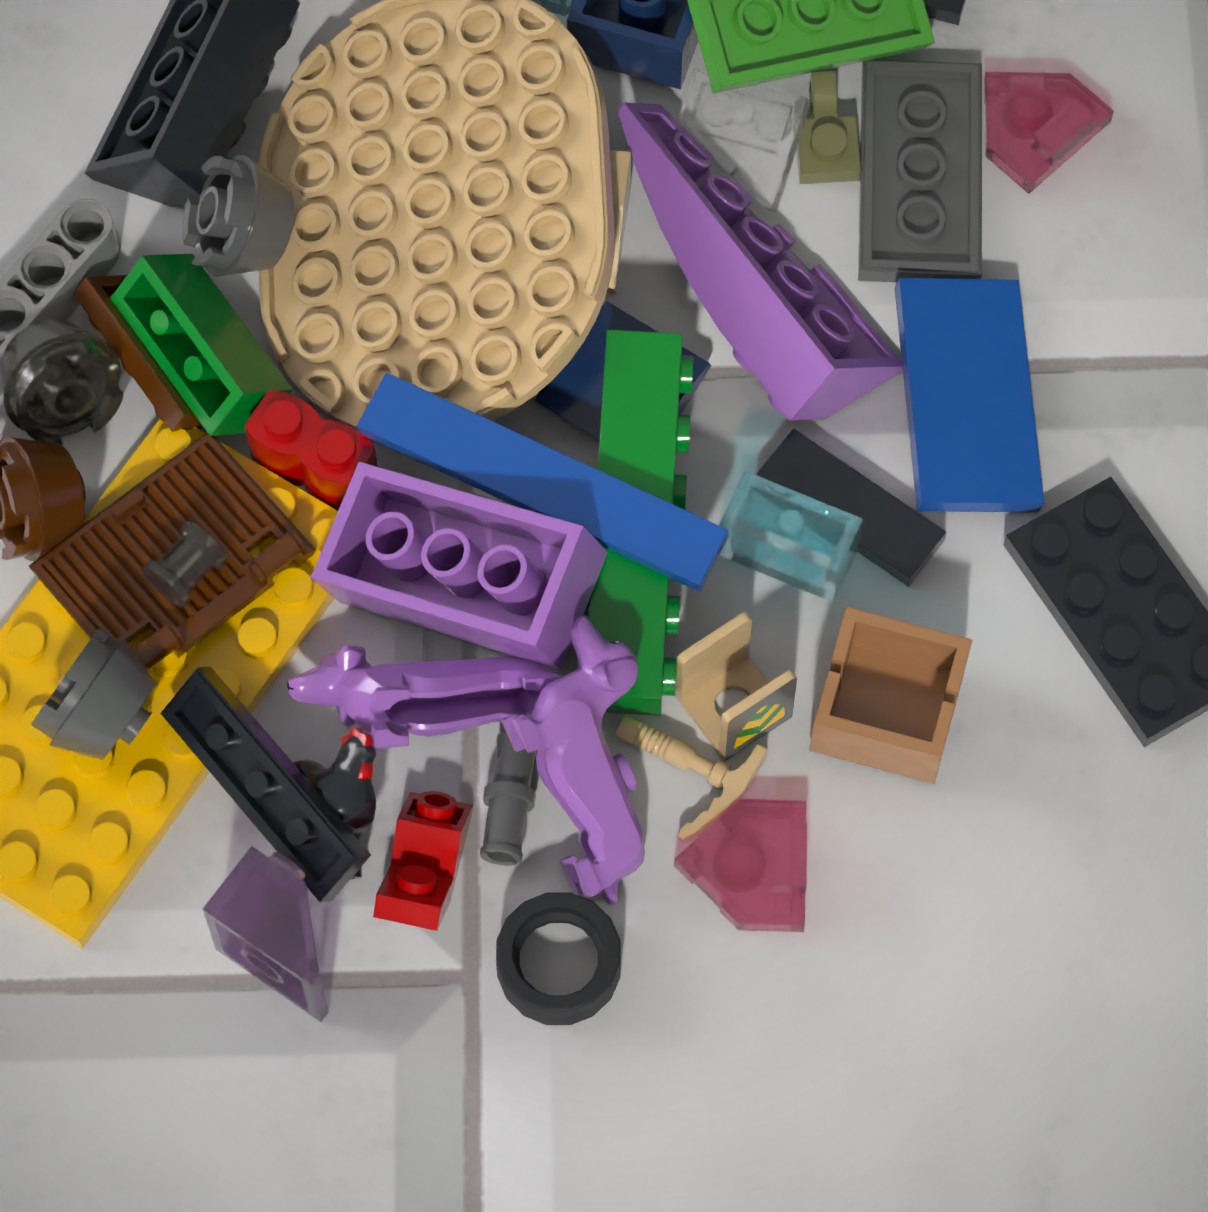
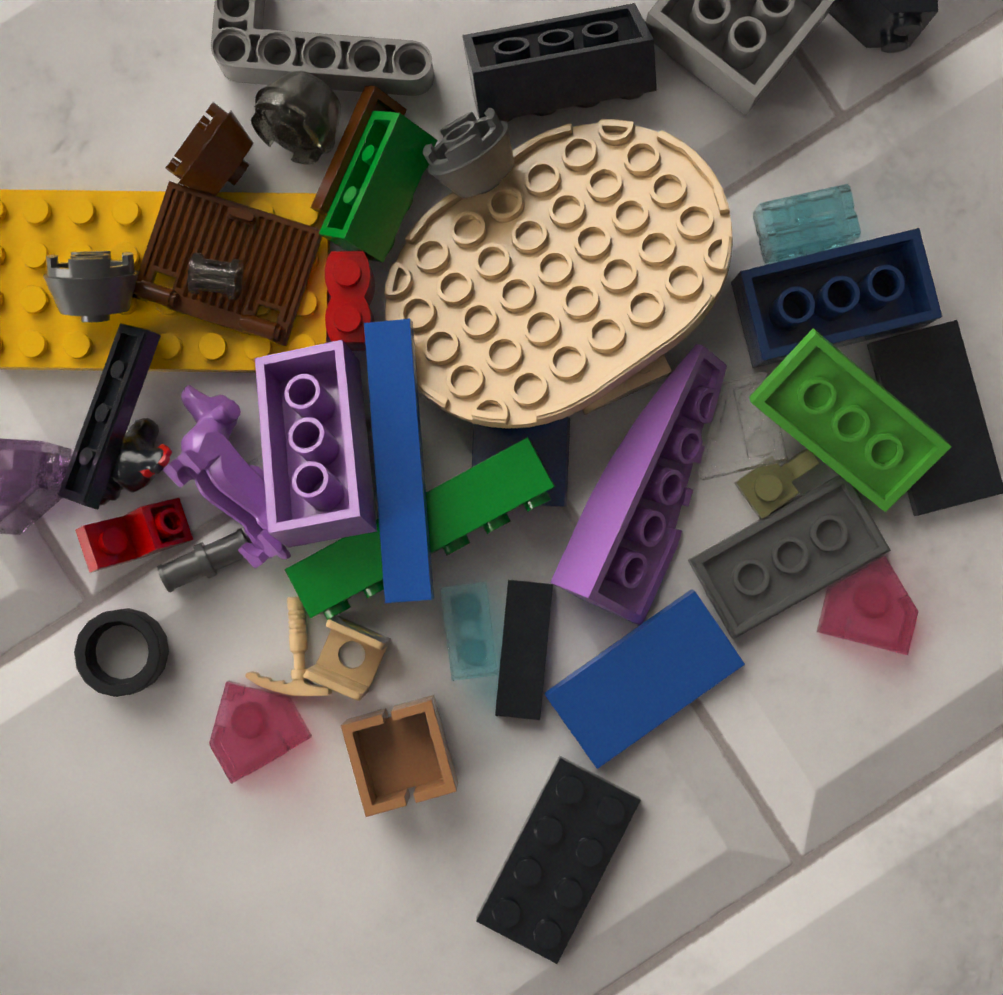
camera: 55 degrees right, 20 degrees up
(579, 765) = (230, 597): medium lavender animal -> none

